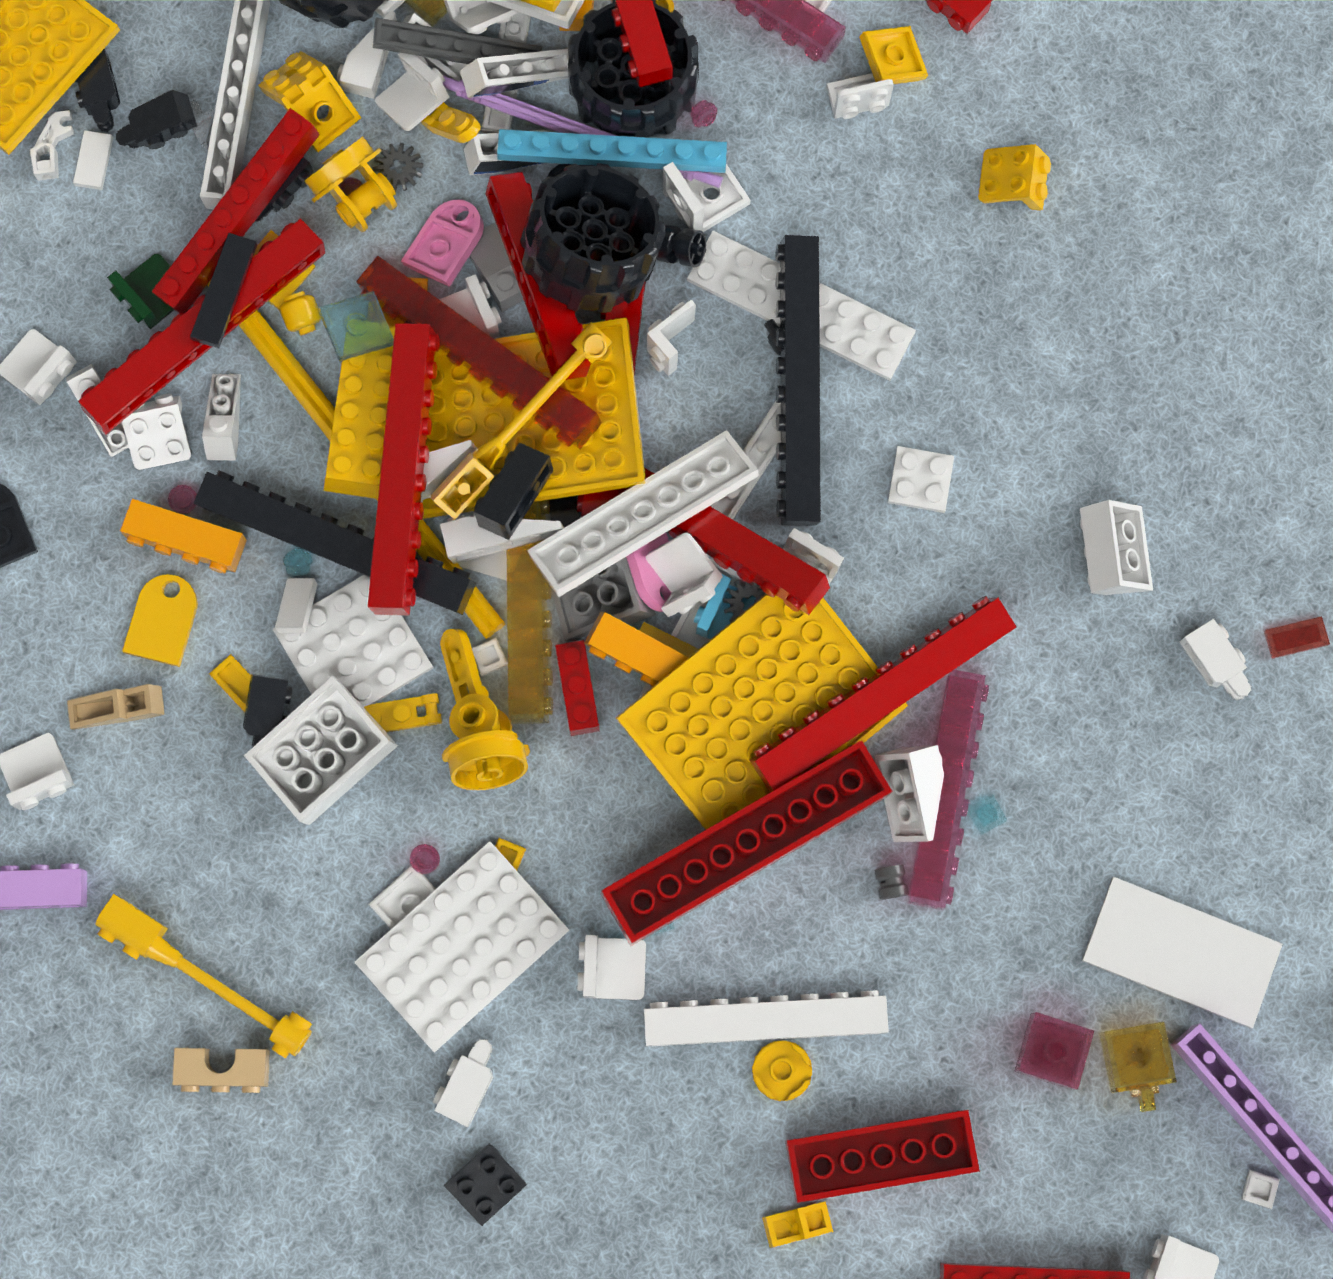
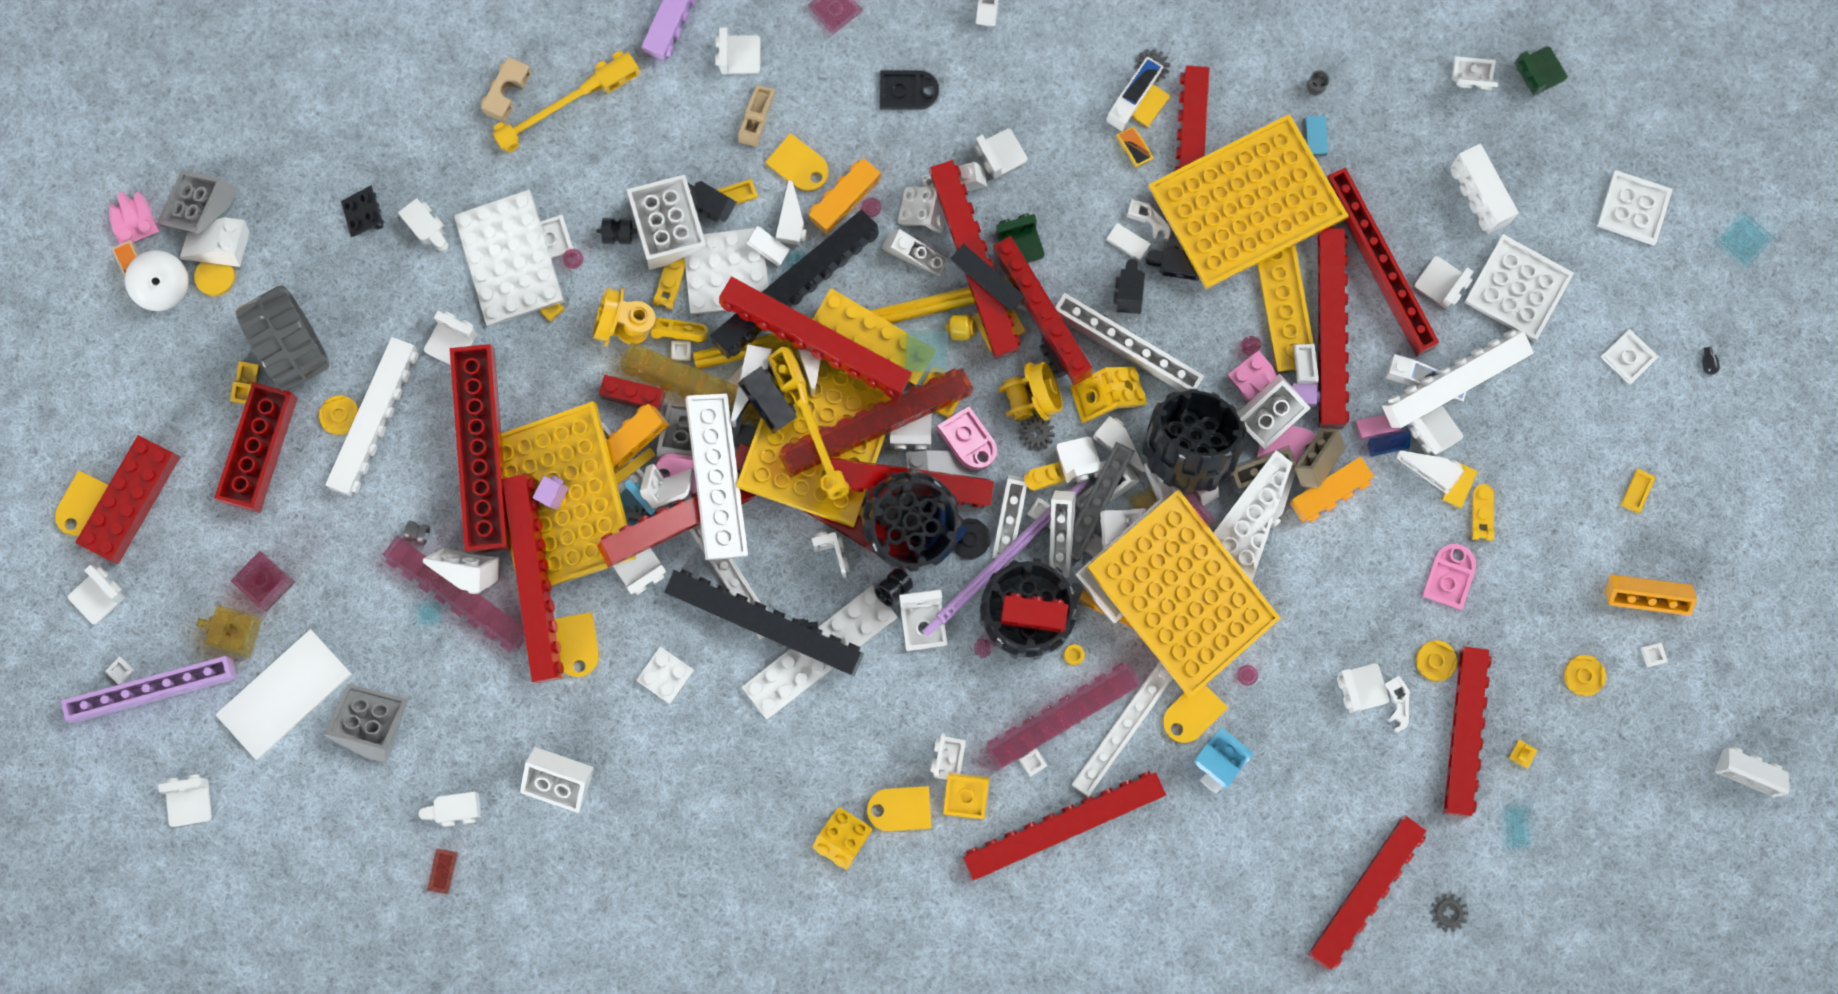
camera: 115 degrees right, 0 degrees up
(245, 592) = (791, 223): none -> white slope
(361, 815) = (616, 230): none -> black wheel
(611, 150) = (976, 569): medium azure plate -> none
(722, 1182) = (282, 338): none -> dark grey wheel
(761, 717) = (551, 491): none -> lavender brick
(931, 604) = (578, 643): none -> yellow tile
(945, 124) = (903, 809): none -> yellow tile
(1164, 822) = (366, 722): none -> light grey slope

